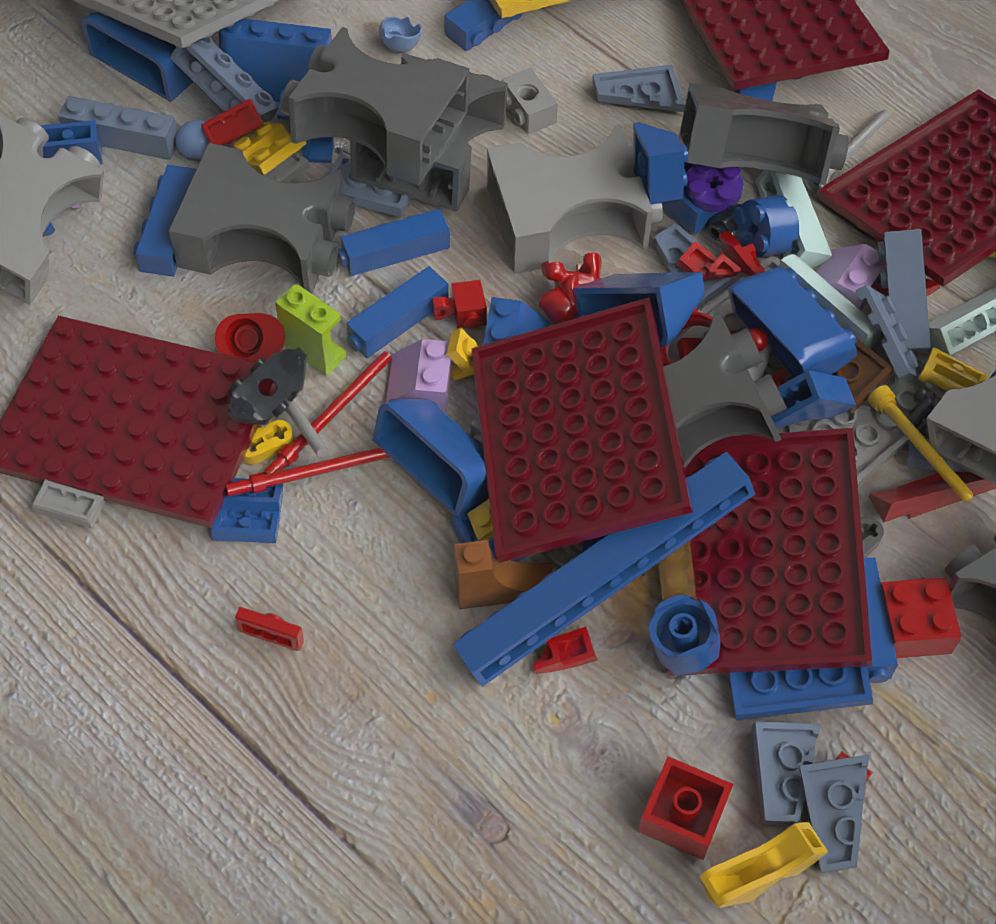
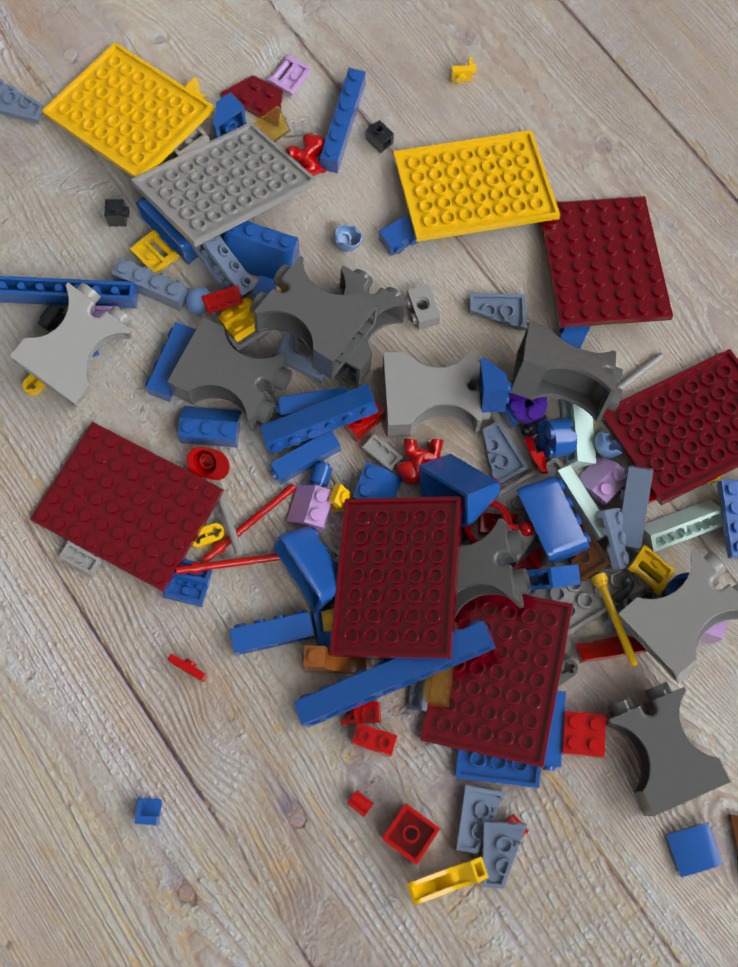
camera: 10 degrees right, 15 degrees up
(53, 48) = (116, 212): none -> black brick
(106, 90) = (150, 256): none -> yellow plate
(238, 294) = (209, 426): none -> blue slope
(242, 859) = (148, 811): none -> blue panel
(287, 372) = (222, 497): black piece -> none
(308, 326) = (246, 465): lime panel -> none
(394, 557) = (271, 633): none -> blue brick
(409, 251) = (319, 419): none -> blue brick
(425, 326) = (321, 474): none -> blue brick
(466, 304) = (350, 459): red brick -> none
(476, 249) = (362, 426): none -> red brick
(508, 286) = (382, 452): none -> light grey plate
(592, 781) = (360, 803): none -> red piece
(593, 681) = (374, 739): none -> red brick
(645, 597) = (417, 696): none -> sand blue plate
(690, 651) = (424, 719): blue brick -> none
(701, 260) = (509, 458): red slope -> none
(839, 234) = (606, 447): none -> medium blue hair

